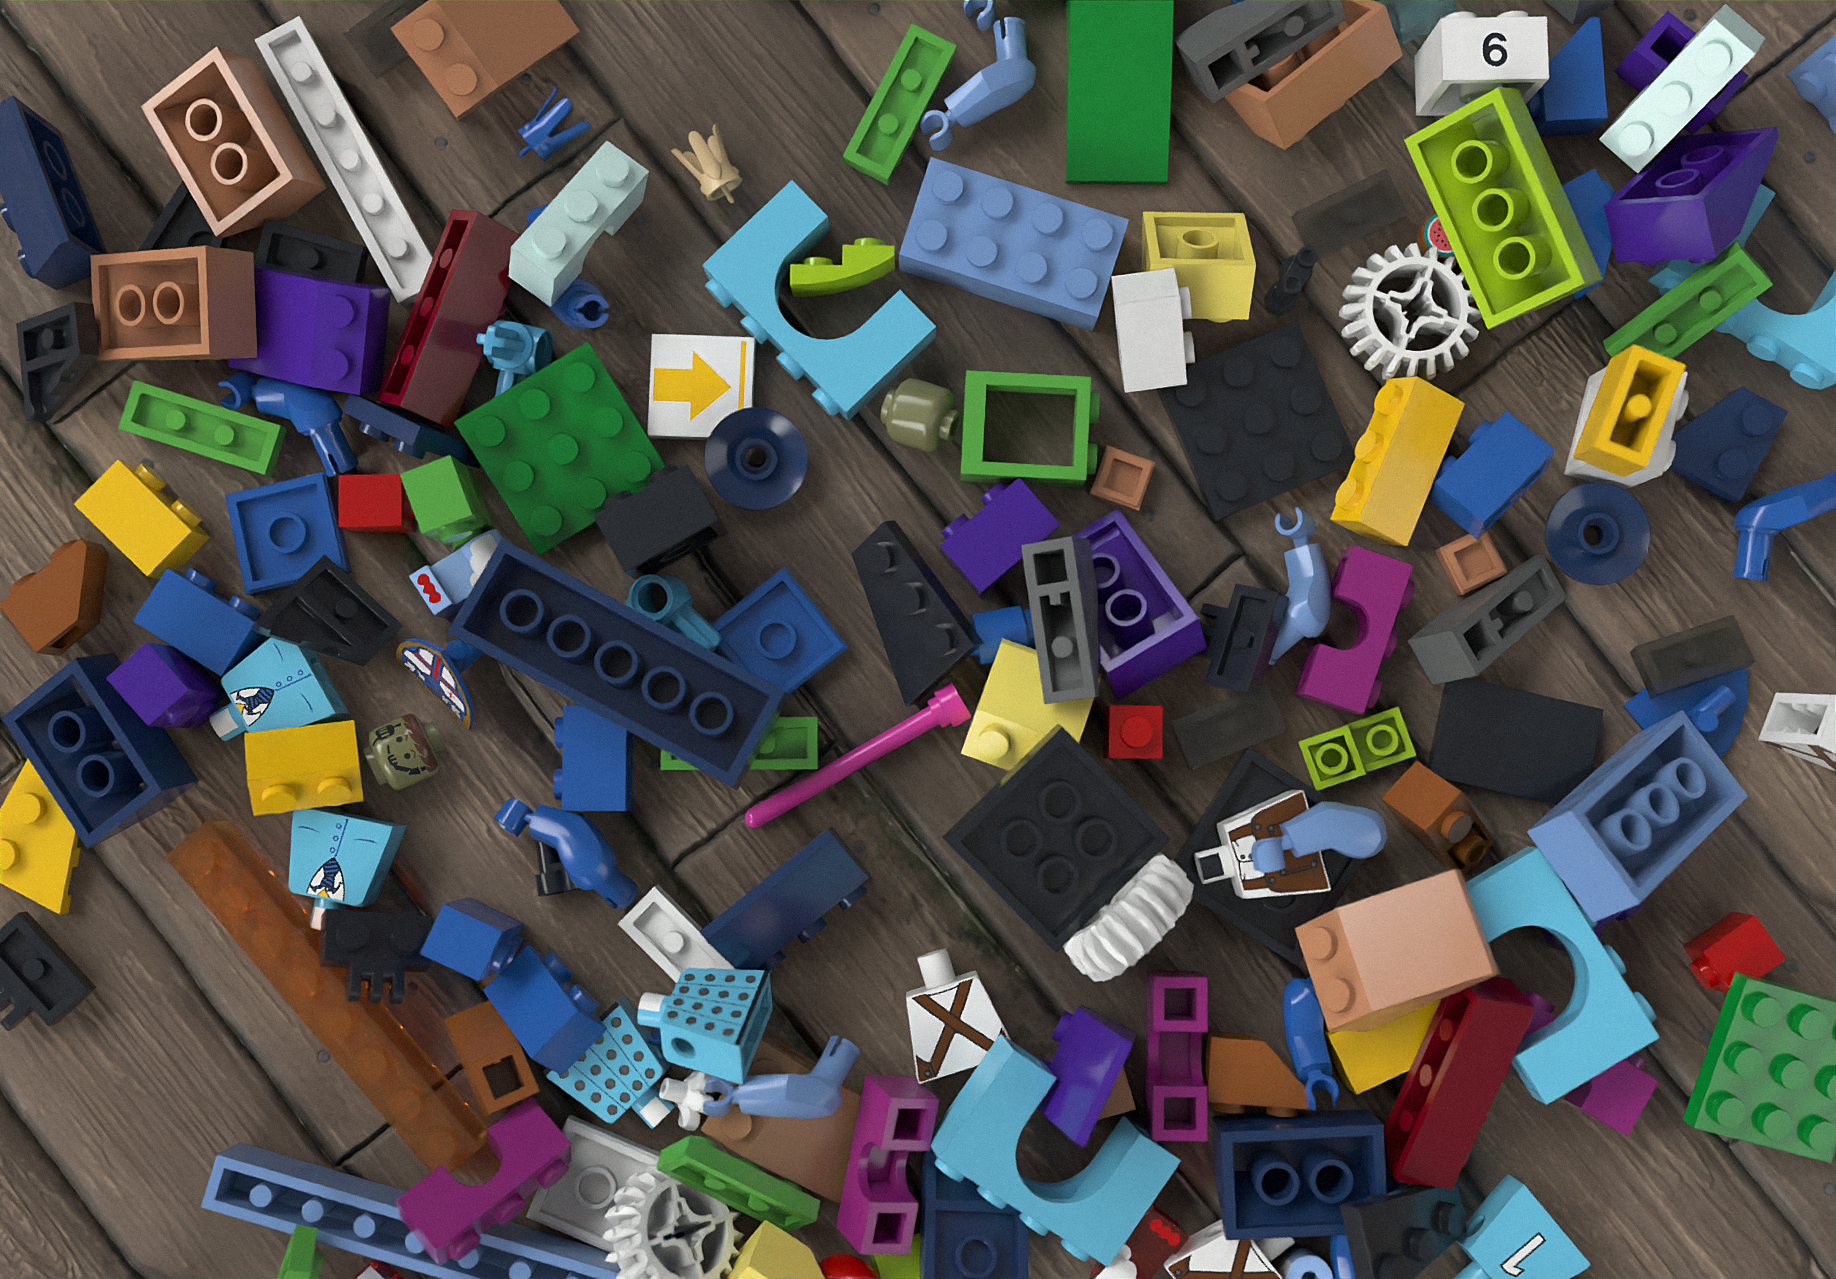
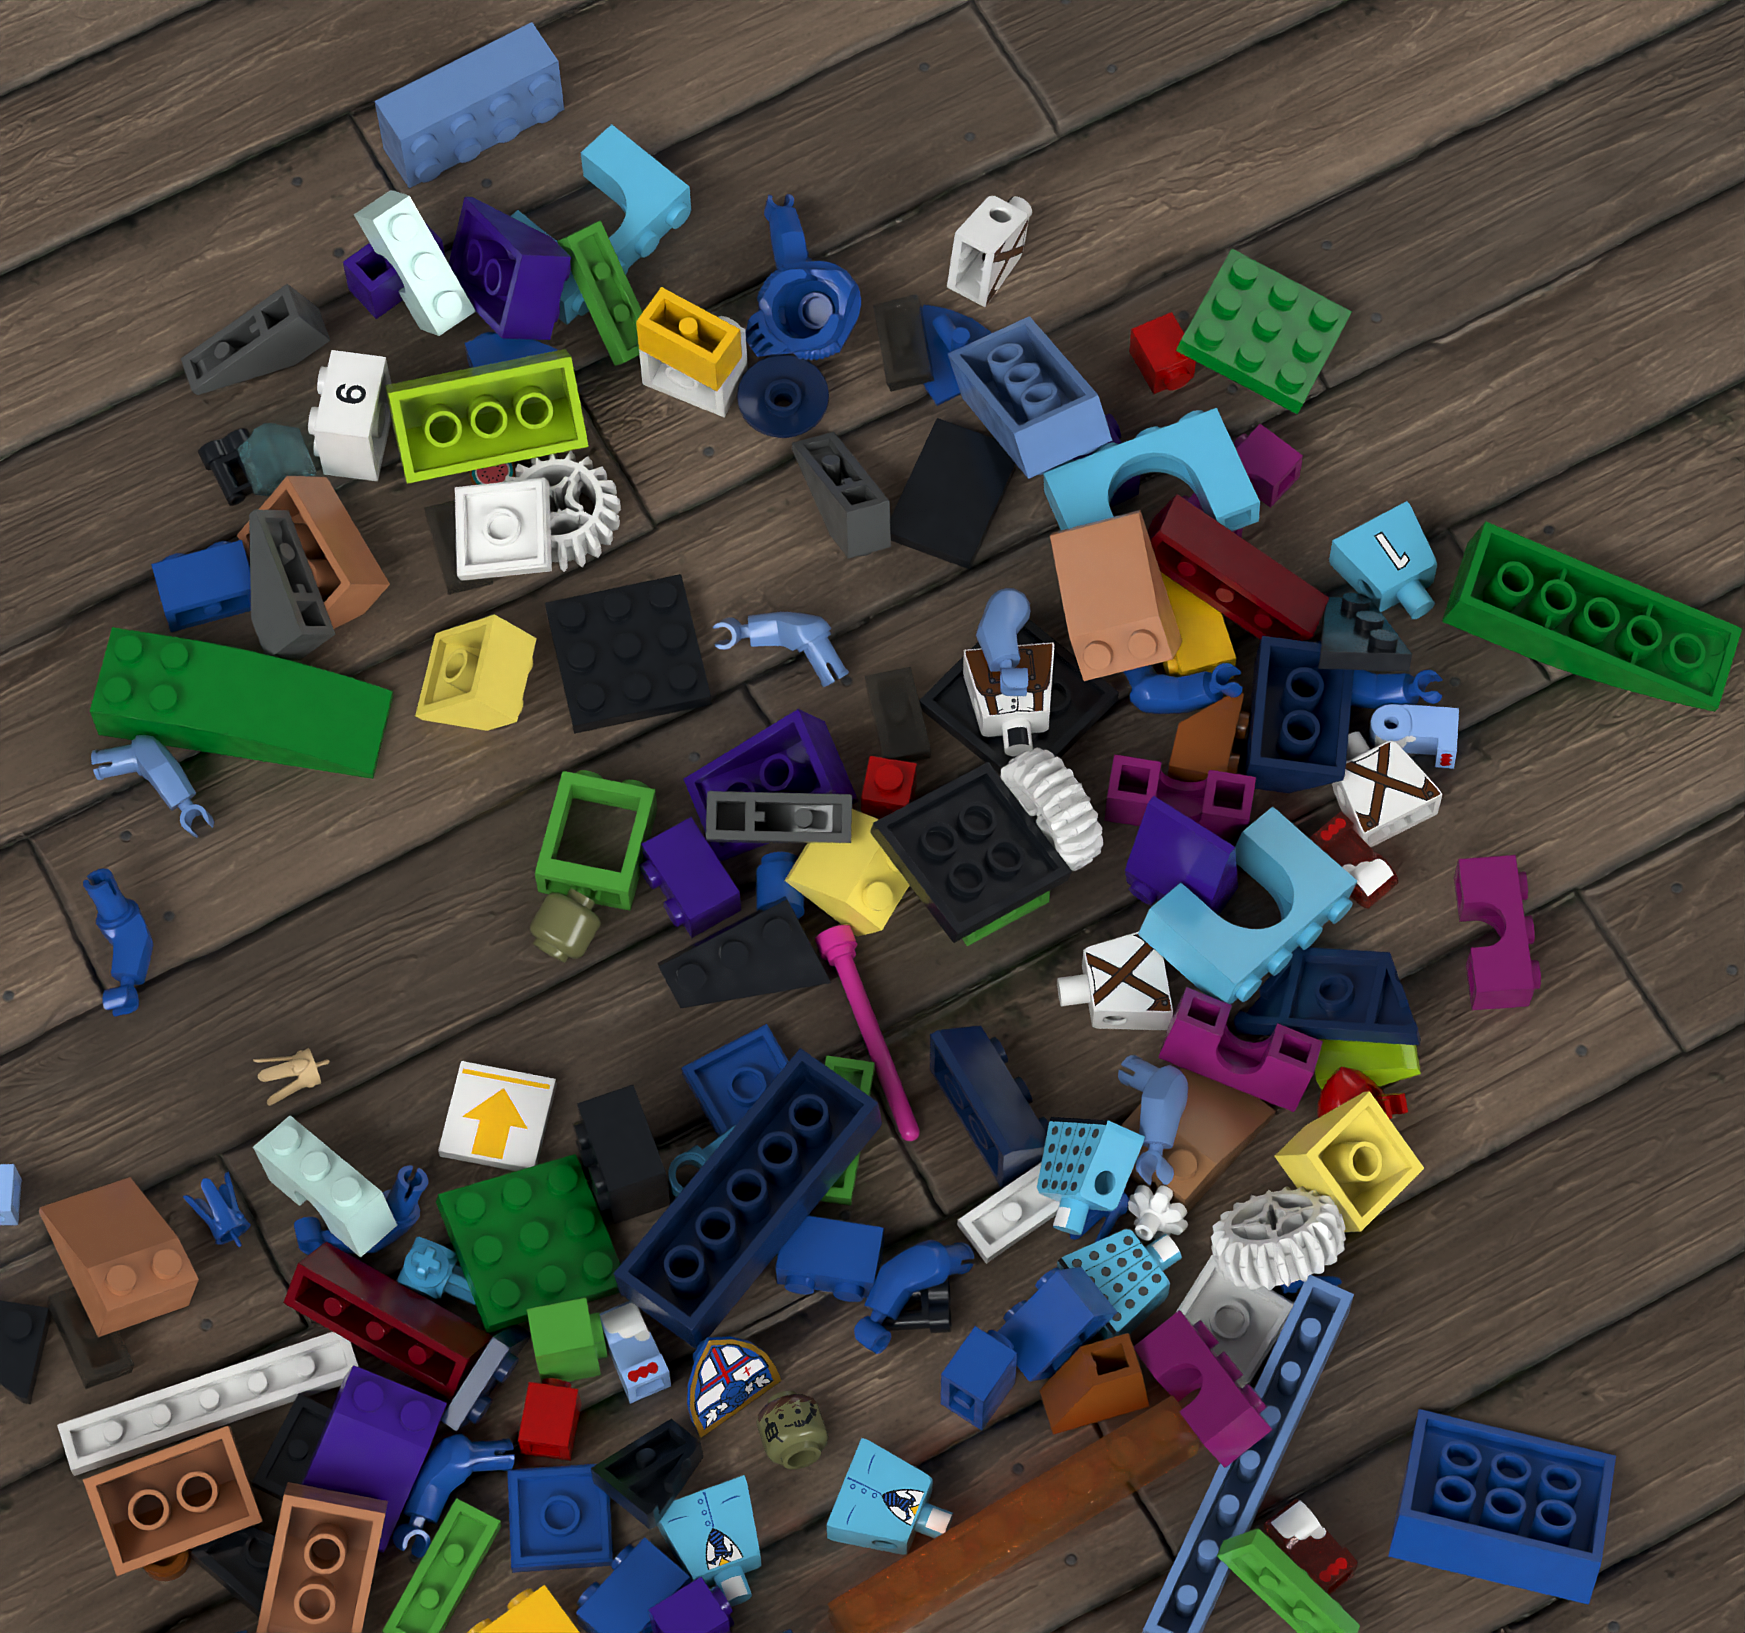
camera: 80 degrees left, 20 degrees down
(303, 767) = (791, 1510): yellow brick -> none
(374, 950) = (975, 1468): black hinge -> none
(738, 1183) = (1237, 1178): bright green plate -> none
(749, 484) = (576, 1052): dark blue dish -> none
(842, 369) = (410, 1053): medium azure arch -> none
(860, 265) = (413, 966): lime slope -> none
(899, 104) = (270, 901): bright green plate -> none
(988, 89) = (276, 813): medium blue arm -> none
(1012, 244) = (424, 823): medium blue brick -> none
(1122, 479) = (658, 769): nougat tile -> none
(1151, 329) = (531, 714): white brick -> none
(1242, 638) = (822, 686): black hinge -> none
(1292, 277) = (508, 598): black piece -> none
(1357, 748) = (935, 616): lime slope -> none
(1369, 255) = (503, 529): none -> white tile
(1374, 591) = (801, 579): magenta arch -> none
(1397, 461) = (688, 540): yellow brick -> none
(1439, 818) = (1007, 558): dark orange slope -> none
(1470, 562) = (787, 501): nougat tile -> none
(1491, 474) = (715, 468): blue brick -> none
(1575, 92) = (398, 342): blue slope -> none
(1706, 538) = (804, 311): none -> blue helmet
(1727, 443) = (721, 281): dark blue wing -> none

